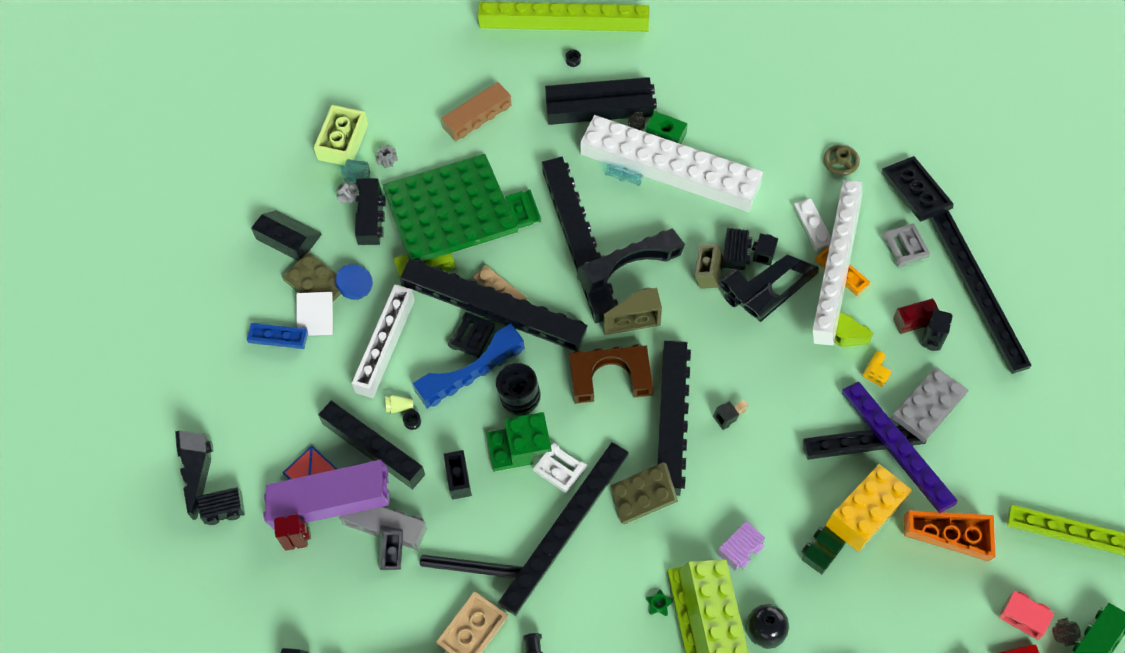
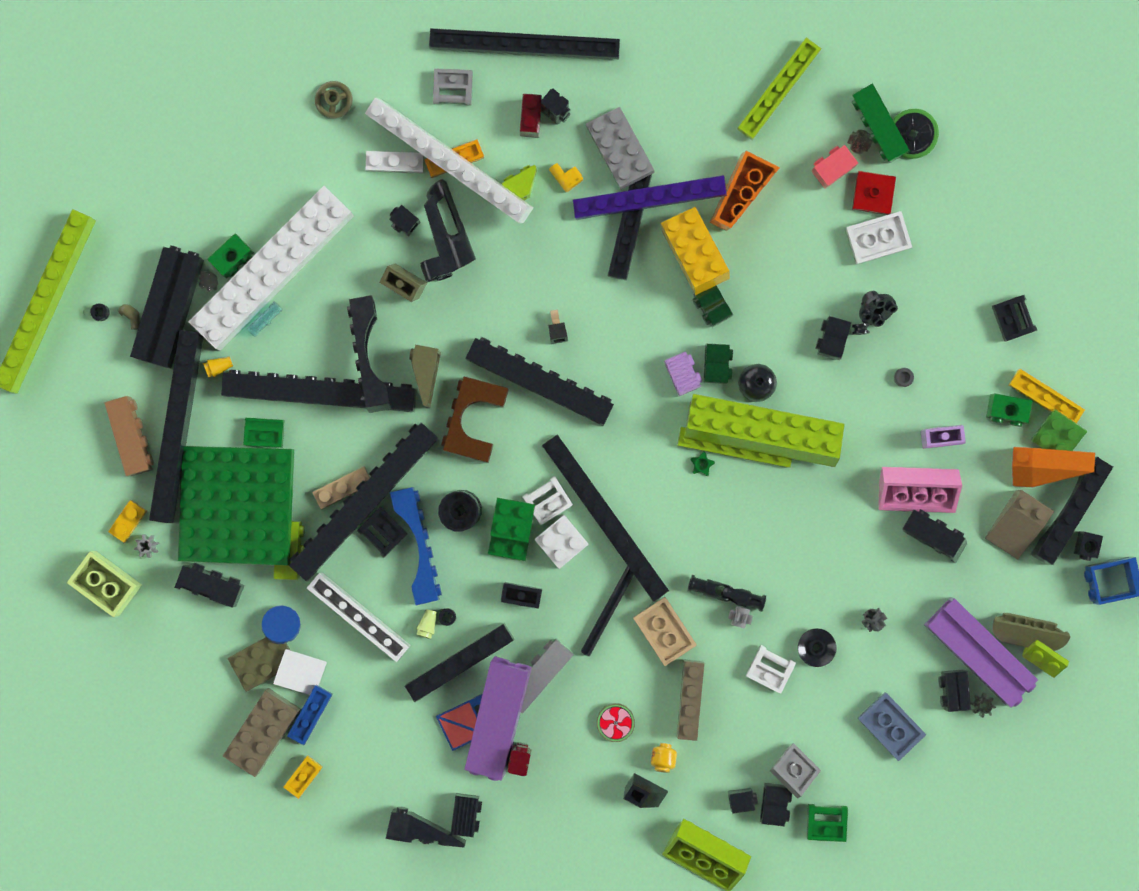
camera: 70 degrees left, 25 degrees up
(216, 351) = (303, 776): none -> yellow plate
(247, 300) = (261, 732): none -> dark tan brick
(285, 234) = (197, 673): black slope -> none
(346, 192) = (174, 599): light grey gear -> none
(355, 170) = (153, 583): clear light blue brick -> none
(360, 617) = (615, 722): none -> tile
(390, 548) = (567, 678): black slope -> none
(403, 137) = (127, 521): none -> yellow plate
(499, 141) = (176, 426): none -> black brick
(525, 493) = (561, 541): none -> white brick
(563, 149) = (217, 366): none -> yellow cone
(583, 76) = (130, 313): none -> olive arm
(644, 493) = (604, 438): olive plate -> none
(735, 249) = (392, 247): black brick -> none
(767, 576) = (717, 363): none -> dark green brick
(917, 188) = (399, 46): black plate -> none

